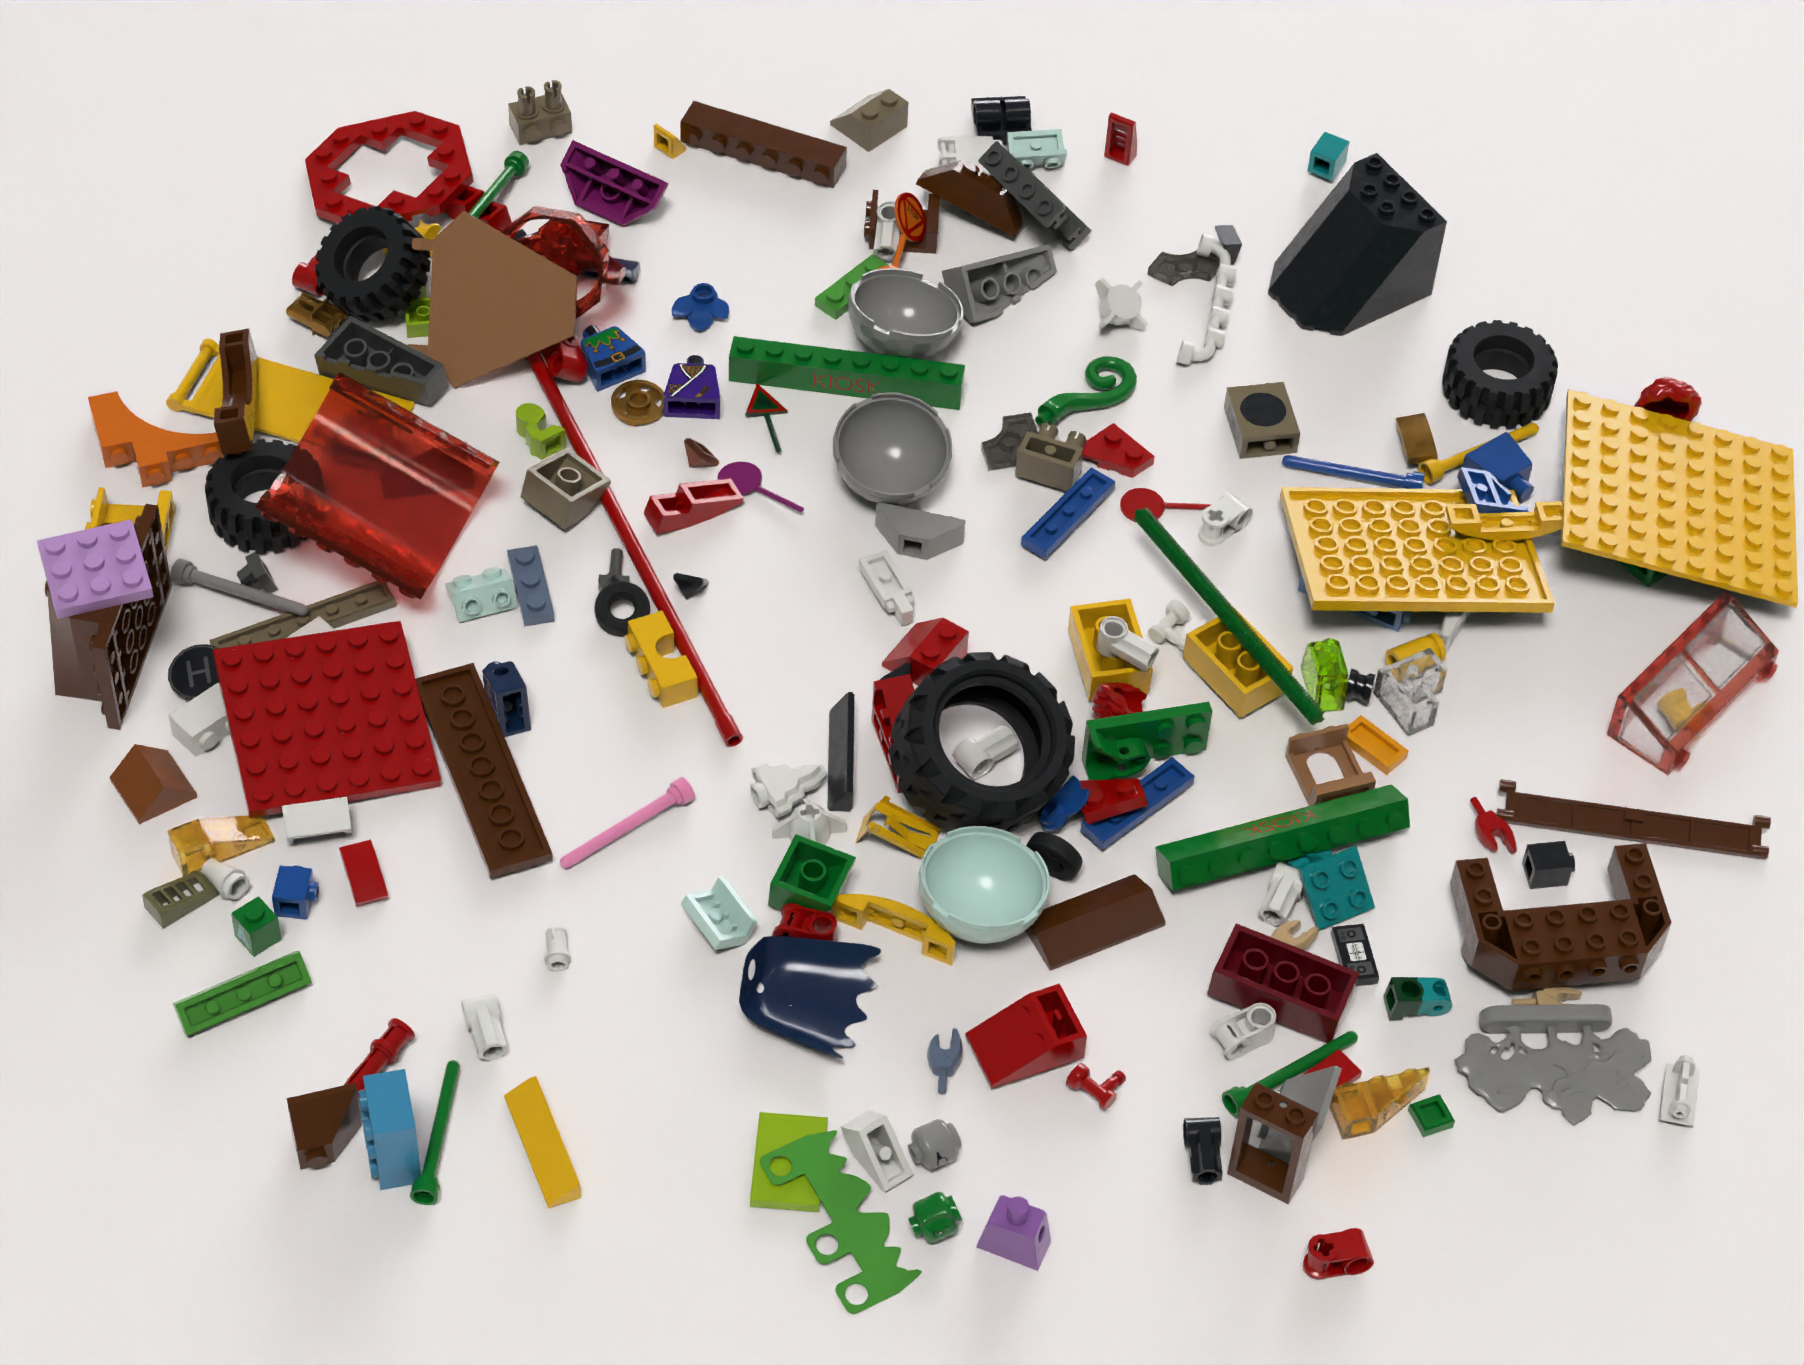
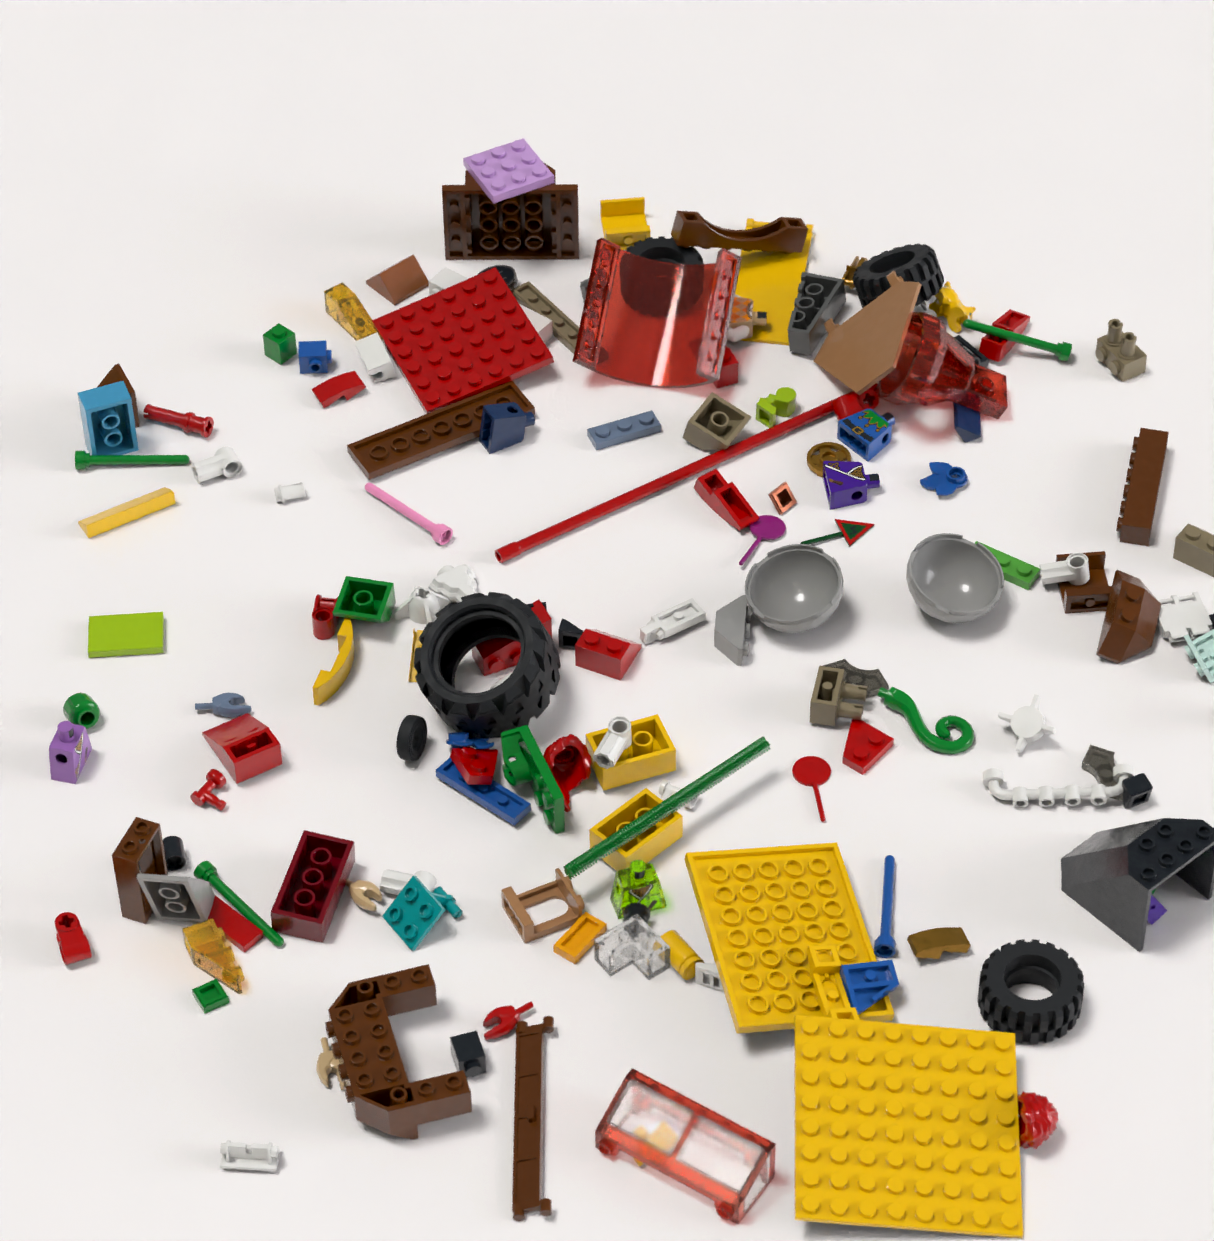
camera: 85 degrees right, 5 degrees down
(155, 451) = (710, 201): orange arch -> none
(169, 913) = (294, 298): olive slope -> none
(186, 573) = (585, 260): light grey piece -> none
(226, 879) = (319, 326): white cone -> none
(242, 993) = (226, 349): bright green plate -> none
(380, 133) = (1004, 256): red plate -> none
(482, 594) = (605, 403): light aqua bracket -> none
(609, 185) = (1058, 401): magenta wedge -> none
(612, 593) = (609, 488): black tyre -> none
(614, 570) = (637, 473): dark grey bar -> none
(667, 142) = (1126, 431): yellow slope -> none
(668, 678) = (575, 495): yellow arch -> none
(689, 584) = (647, 510): black slope -> none
(721, 915) = (327, 566): light aqua bracket -> none
(816, 980) = (265, 629): dark blue piece -> none
(844, 371) = (892, 568): green brick -> none
(855, 1231) = (72, 675): bright green piece -> none
(877, 1149) = (136, 673): white slope -> none
(910, 222) = (1074, 574): piece -> none
(934, 1144) = (142, 703): light grey head -> none
(983, 884) = (362, 688): light aqua piece -> none
(998, 282) = (1030, 644): light grey wedge -> none
(1034, 195) = (1141, 663): dark grey fence -> none
(1068, 513) = (782, 719): blue plate -> none
(1095, 921) = (366, 777): reddish brown slope -> none
(1223, 519) = (804, 818): white piece -> none
(1241, 1033) = (268, 871): white piece -> none
(1261, 420) = (926, 833): dark tan brick -> none
(1282, 837) = (460, 878): green brick -> none
(1355, 952) = (358, 938): tile -> none
(1416, 997) = (317, 974): leg -> none
(1436, 468) = (905, 958): yellow piece -> none
(1505, 462) = (921, 1001): blue torso -> none
(1563, 1072) = (265, 1078): light grey plant -> none

